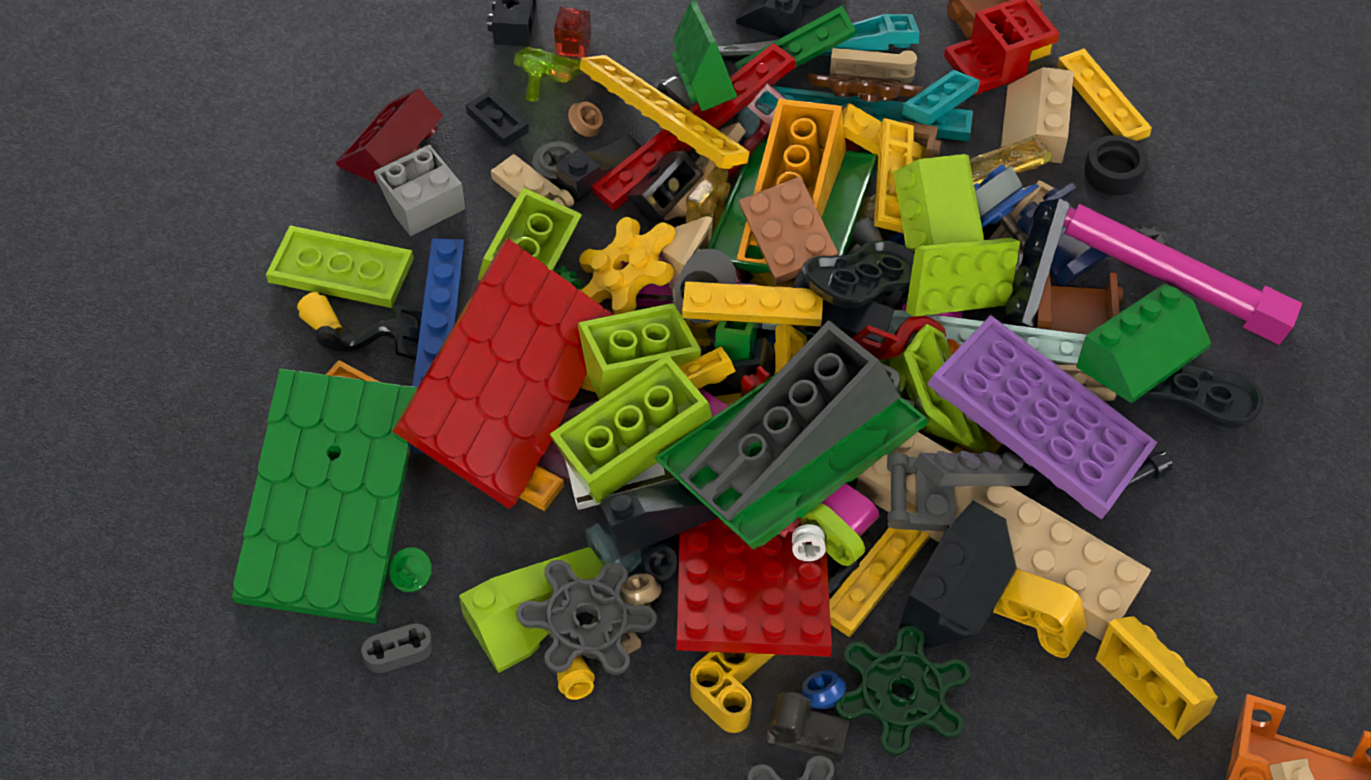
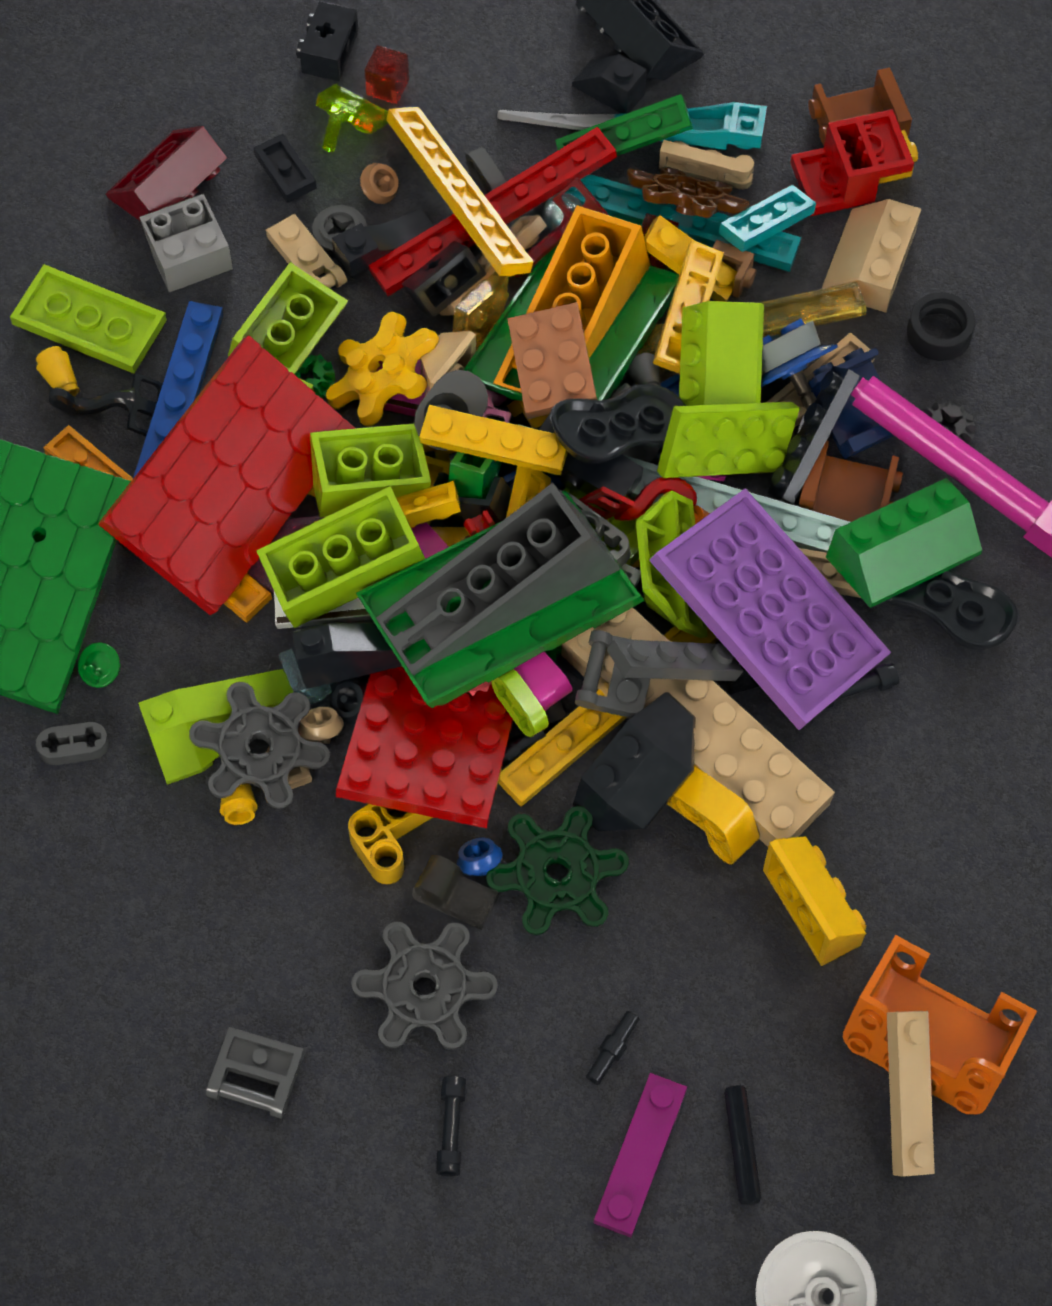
camera: 10 degrees right, 10 degrees up
(701, 61) = (513, 139): green slope -> none
(805, 534) = (492, 708): white bush -> none
(1104, 96) = (952, 240): yellow plate -> none

